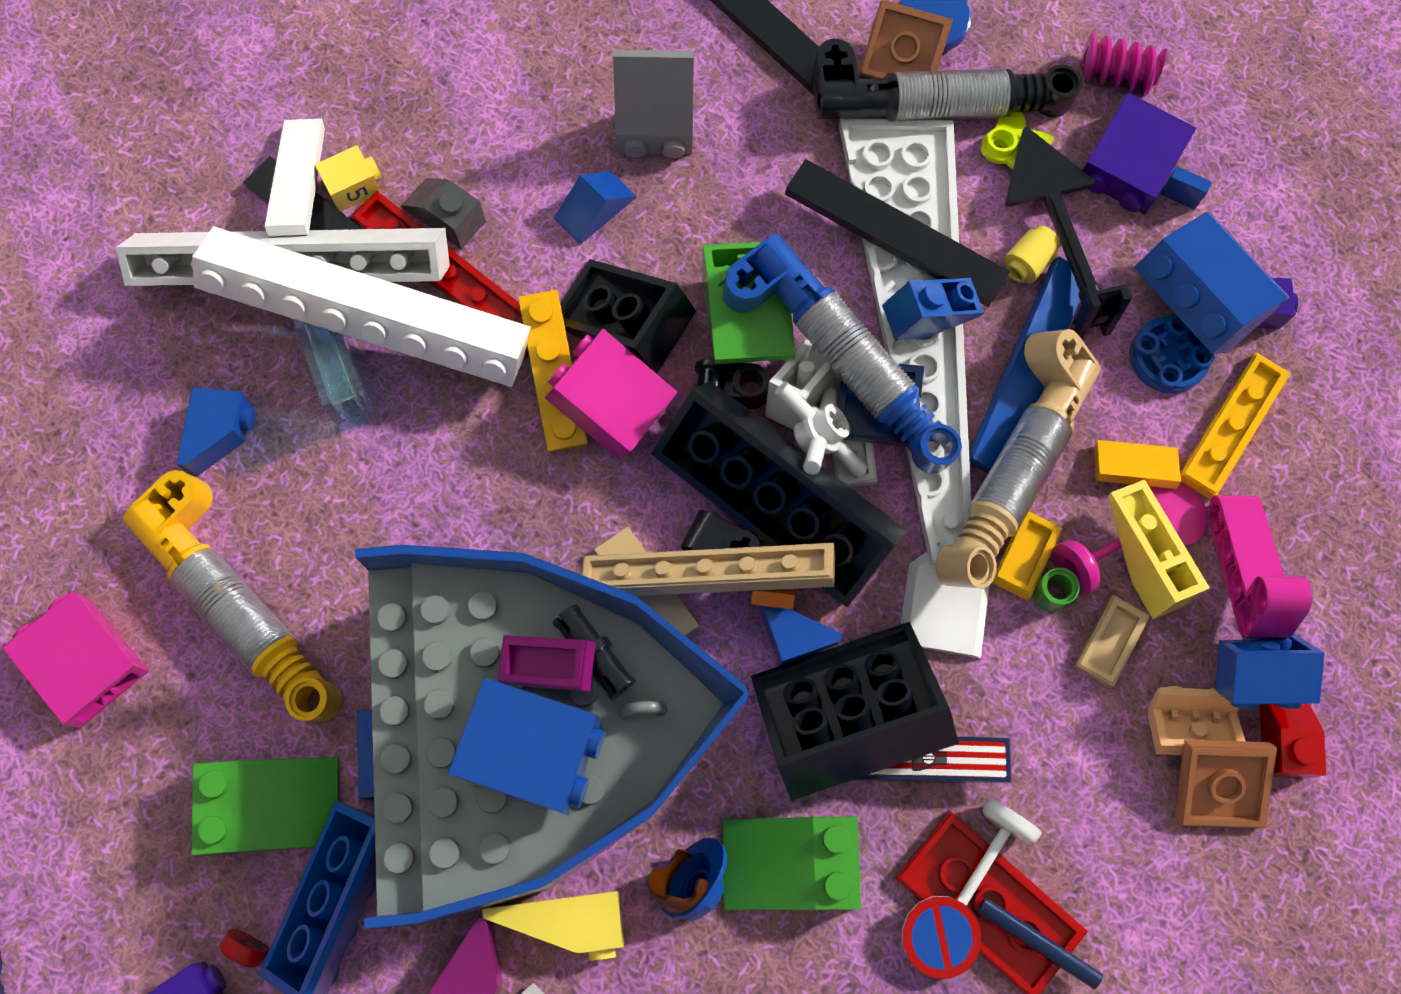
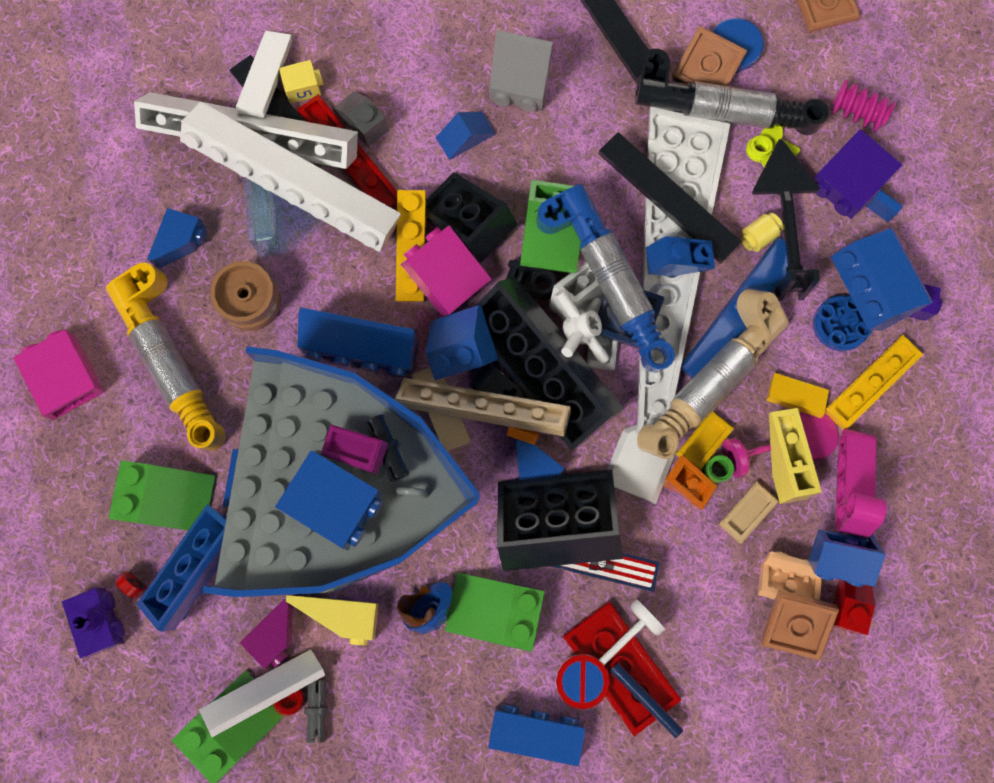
camera: 15 degrees right, 5 degrees up
(308, 484) = (230, 296): none -> medium nougat wheel
(507, 517) = (357, 342): none -> blue slope
(653, 489) = (459, 343): none -> blue slope
(1022, 616) = (690, 483): none -> orange slope

